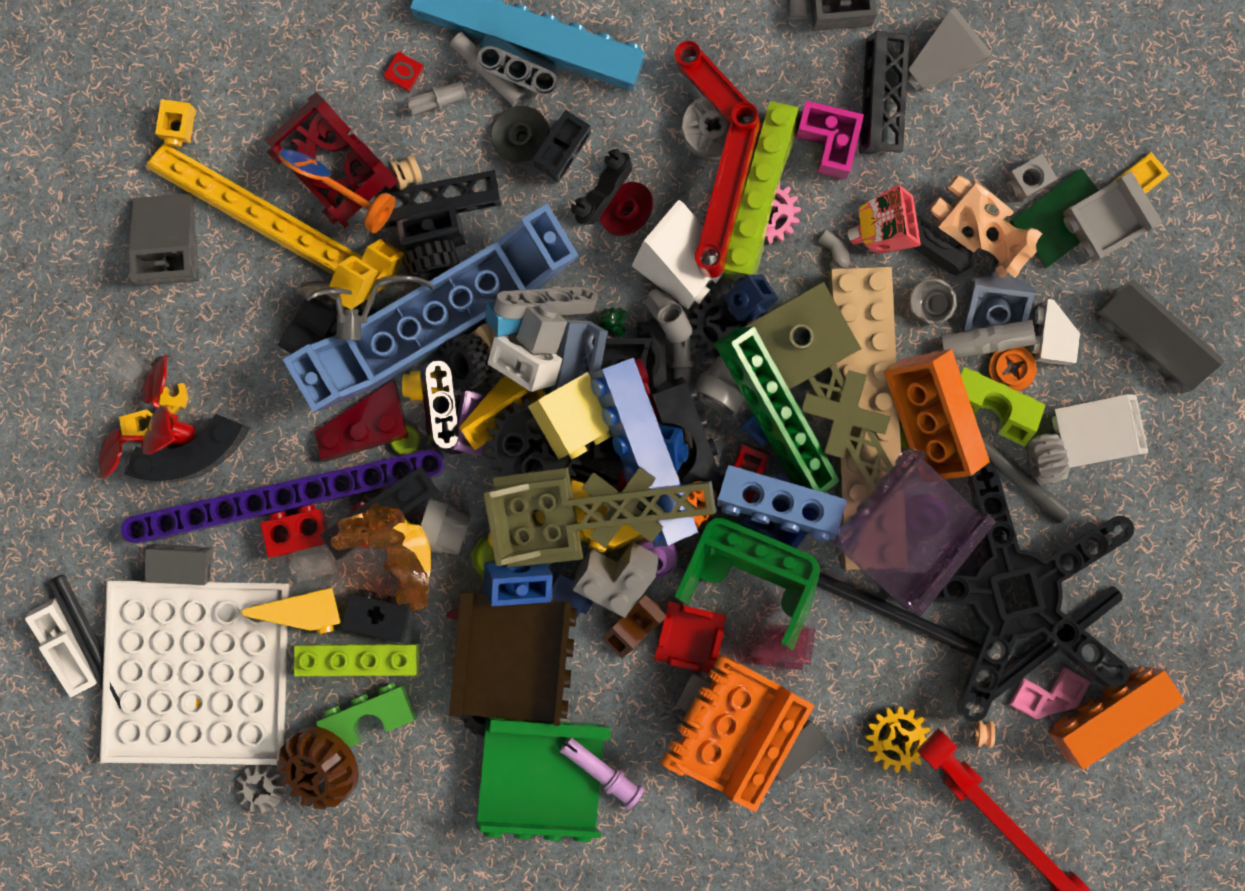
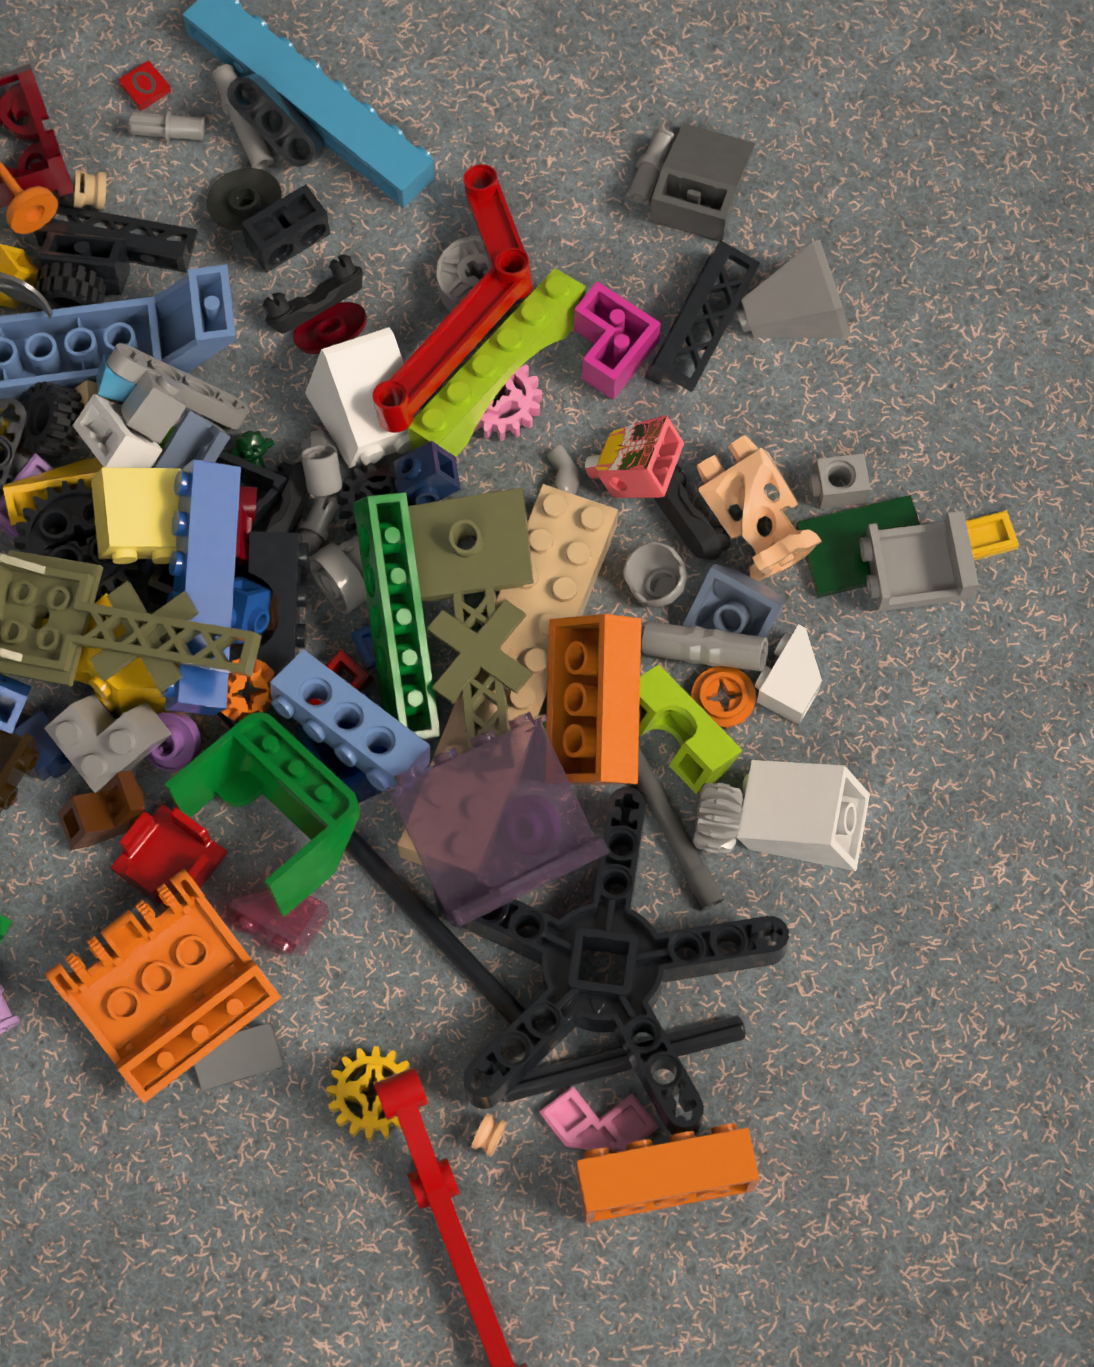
camera: 20 degrees right, 15 degrees down
(1157, 337) = (920, 725): dark grey slope -> none

